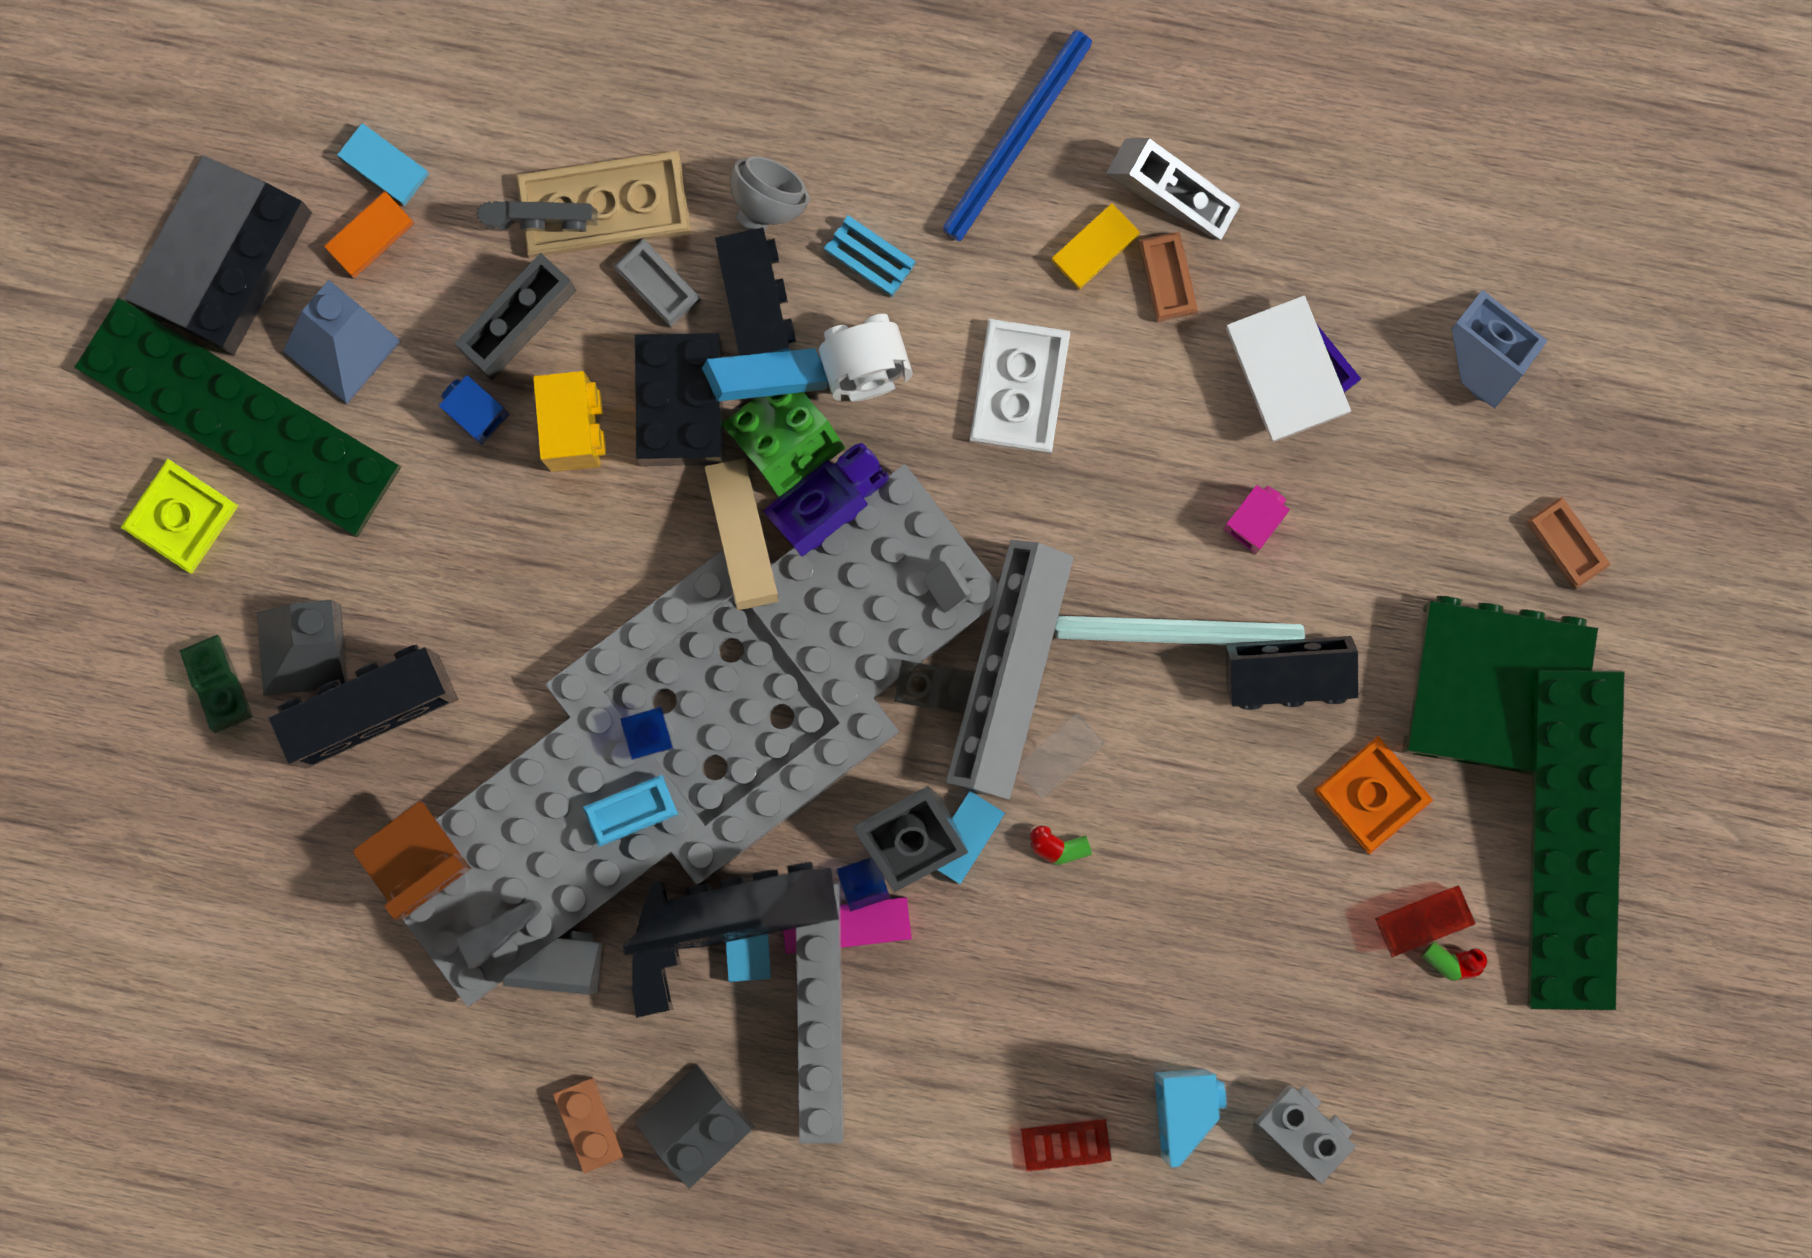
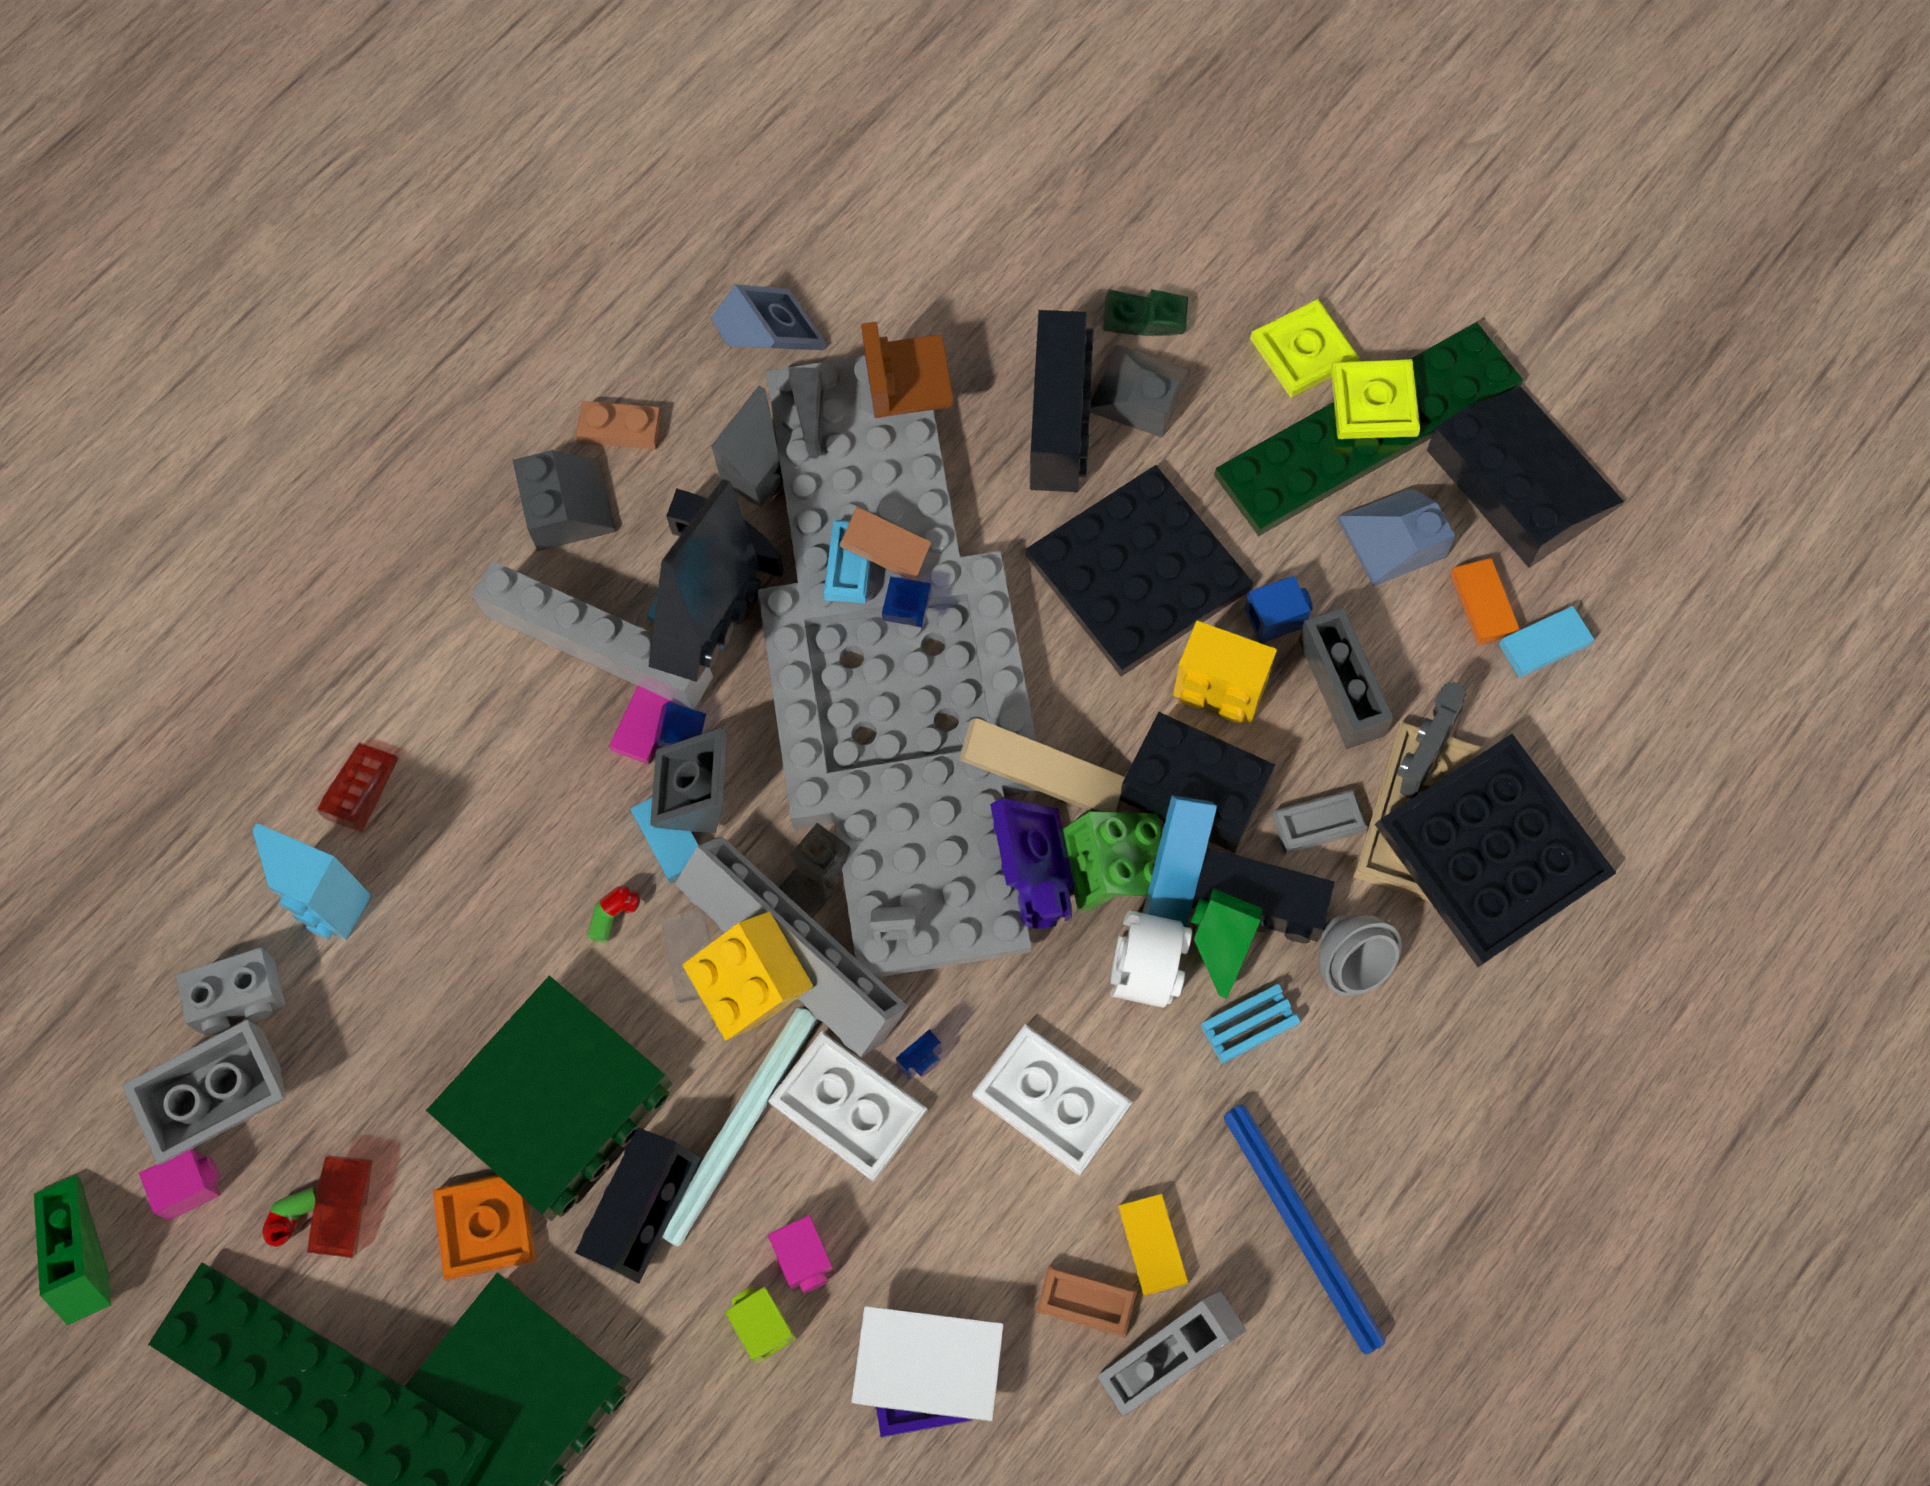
camera: 115 degrees right, 15 degrees down
(212, 419) = (1375, 399): none -> neon yellow tile
(412, 1037) = (765, 320): none -> sand blue slope
(492, 556) = (1138, 570): none -> black plate
(600, 783) = (885, 544): none -> nougat tile
(611, 121) = (1495, 849): none -> black plate
(811, 303) = (1224, 936): none -> green slope
(1044, 509) = (920, 1056): none -> clear blue plate
(1060, 683) = (747, 975): none -> yellow brick
(1115, 551) = (848, 1106): none -> white tile
(1245, 797) = (551, 1098): none -> dark green panel
(1328, 521) = (759, 1323): none -> lime brick
(1401, 1087) = (206, 1090): none -> light grey slope
(1481, 1067) = (181, 1184): none -> dark pink brick
(1582, 1125) = (69, 1252): none -> green slope

